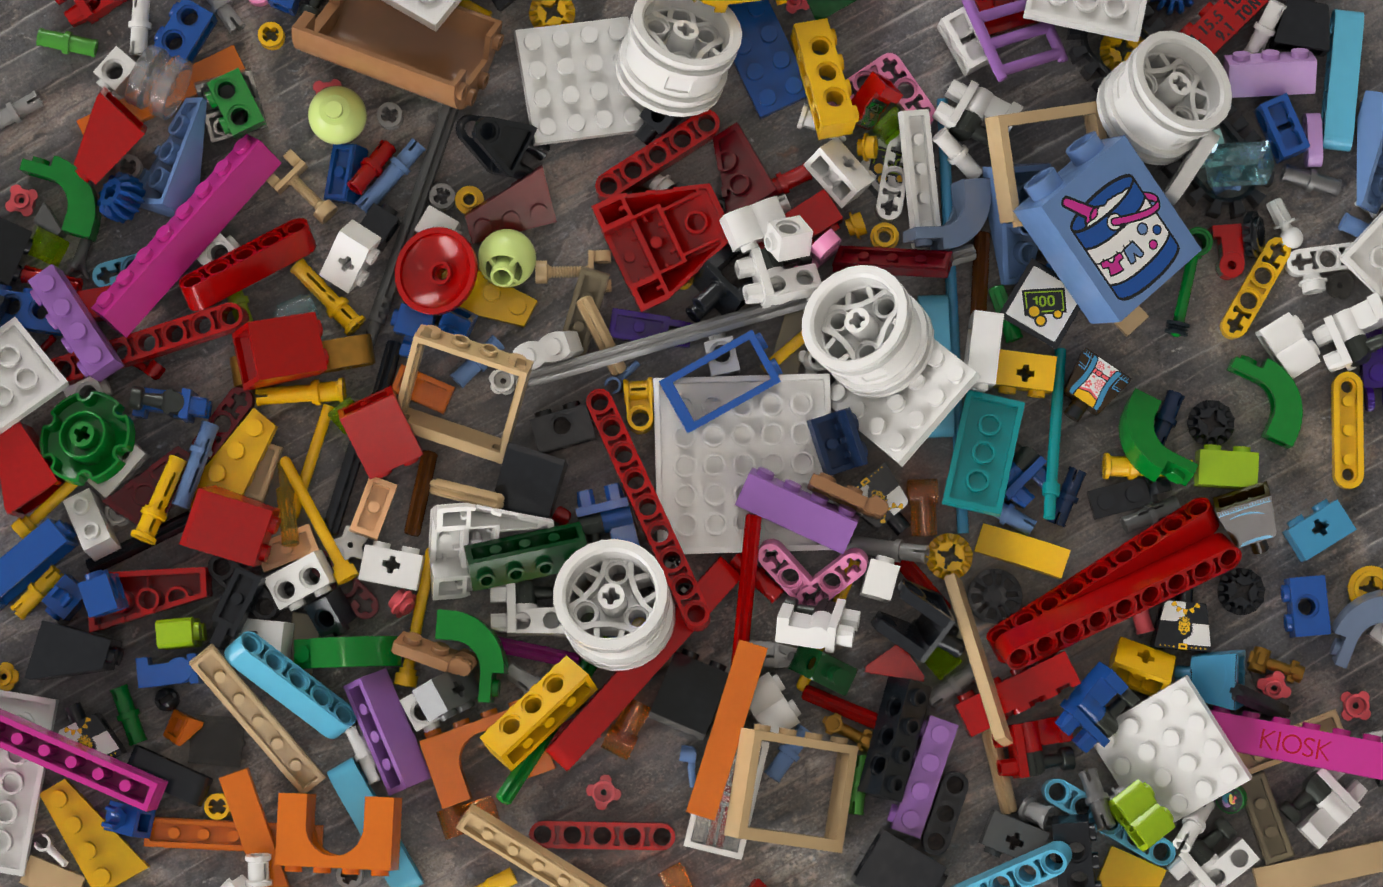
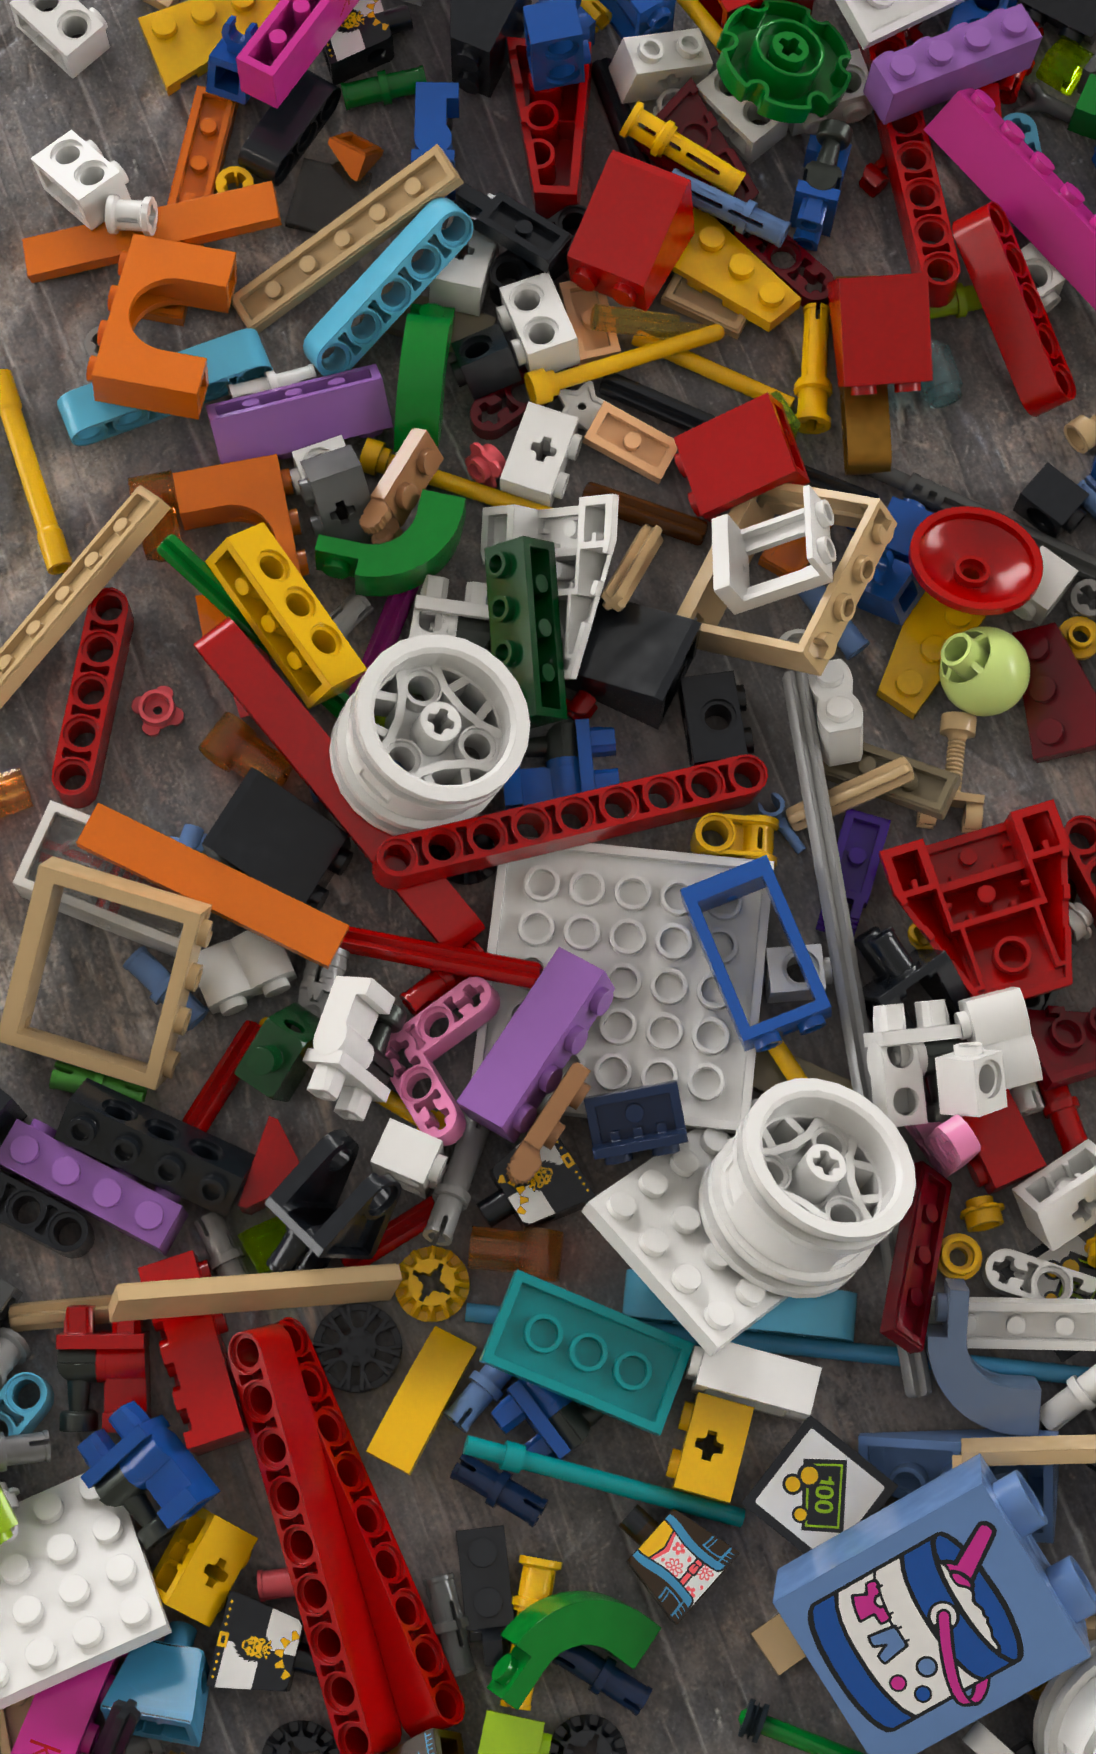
camera: 95 degrees right, 10 degrees down
(168, 705) = (389, 142): black hinge -> none
(180, 633) = (488, 151): lime brick -> none
(336, 306) = (935, 429): yellow pin -> none
(350, 257) = (1011, 451): white brick -> none
(462, 428) = (734, 545): none -> white panel
(834, 724) = (198, 1064): pearl gold bar -> none
(980, 272) = (883, 1403): reddish brown axle -> none
(998, 298) = (844, 1426): green axle -> none

